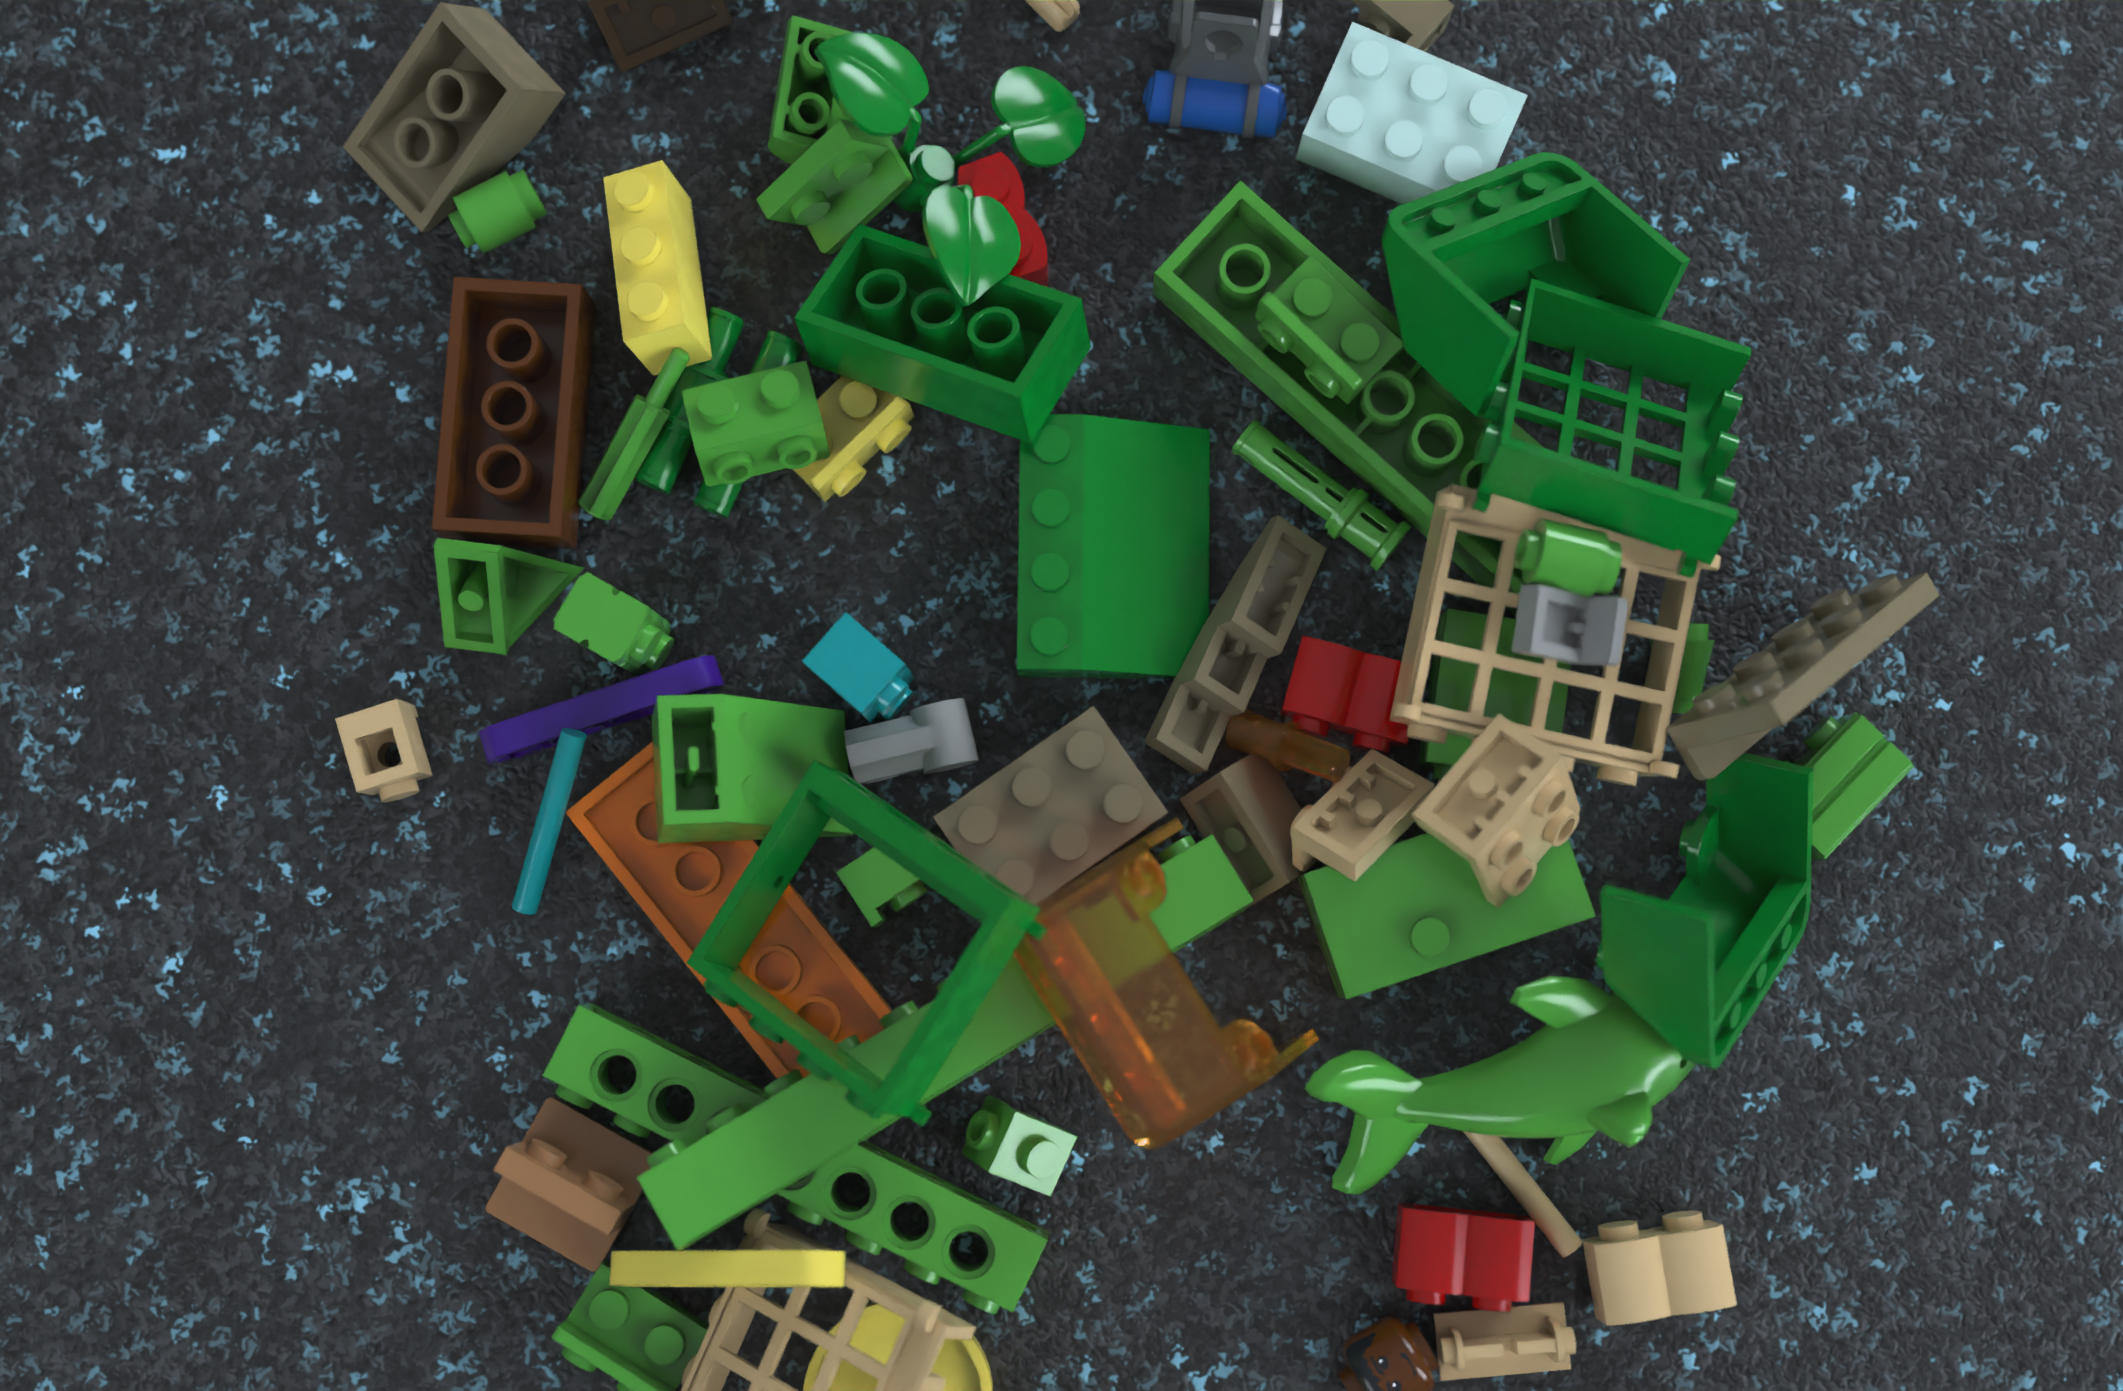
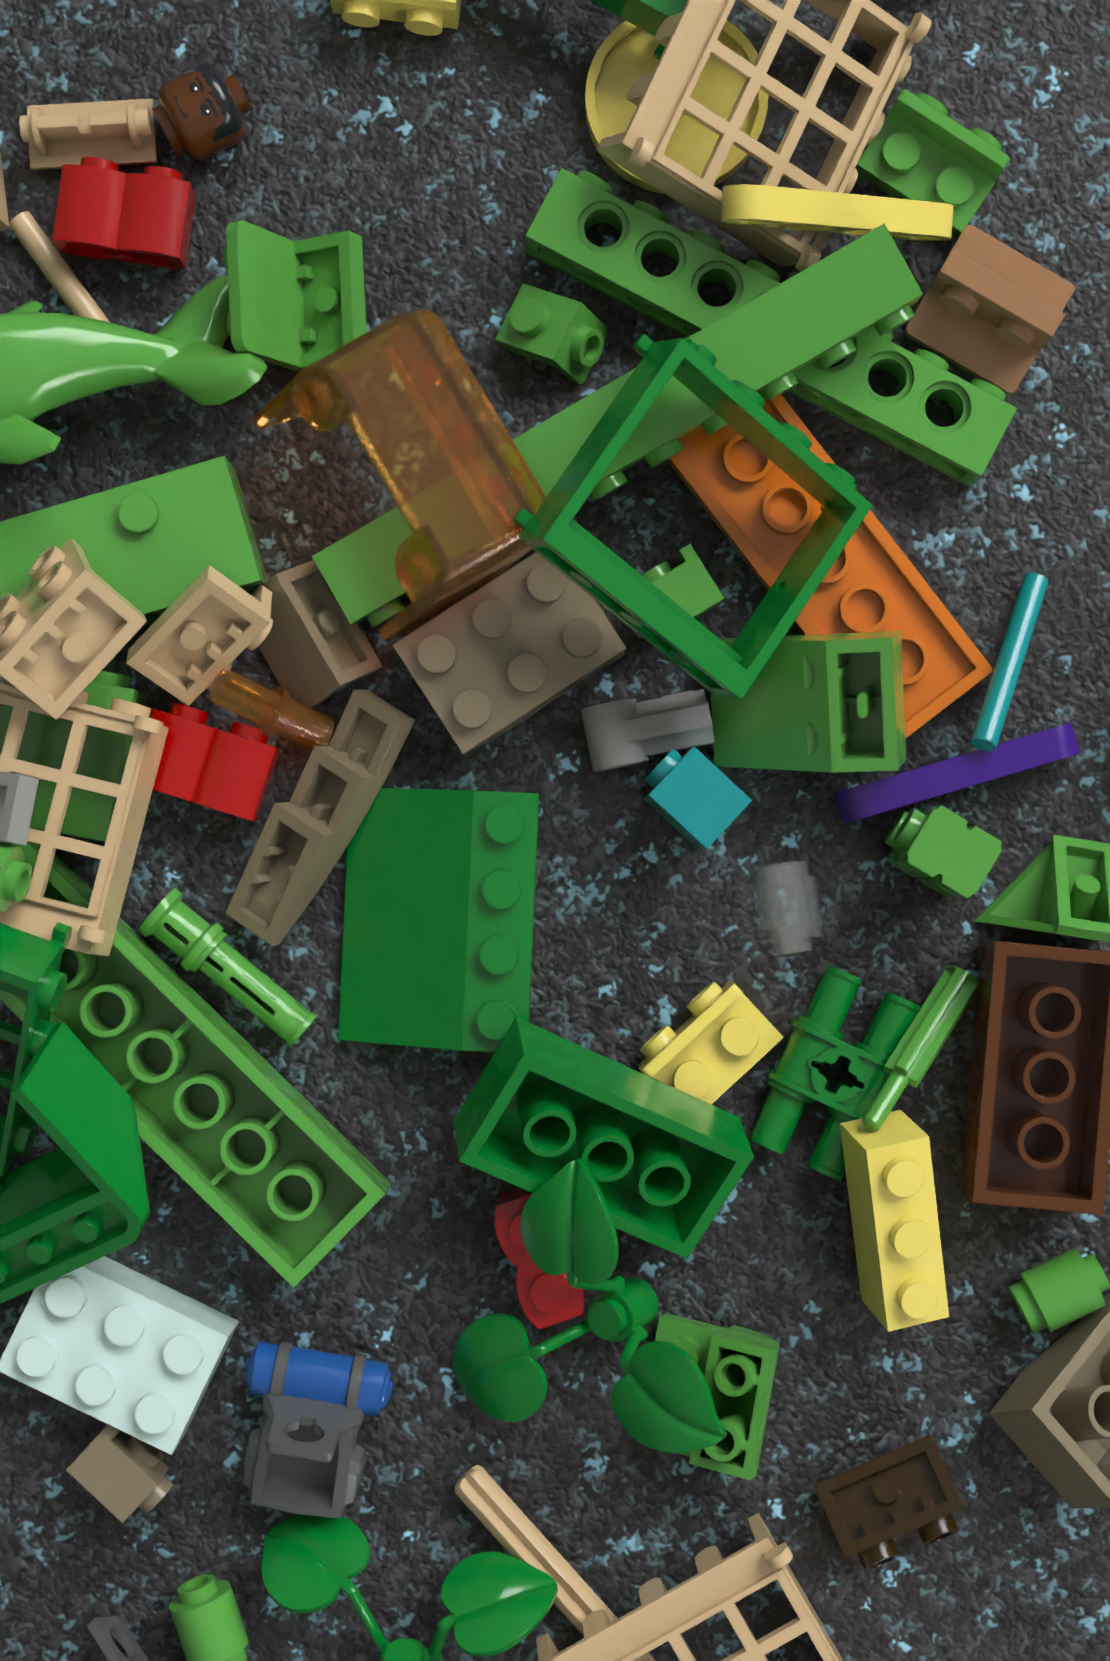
camera: 175 degrees right, 5 degrees up
(755, 424) = (796, 1053): bright green bracket -> none
(768, 570) = (787, 907): none -> clear brick
(837, 185) = (708, 1299): bright green bracket -> none
(1281, 1169) = (292, 296): none -> bright green bracket
(1326, 331) = (211, 1123): bright green bracket -> none

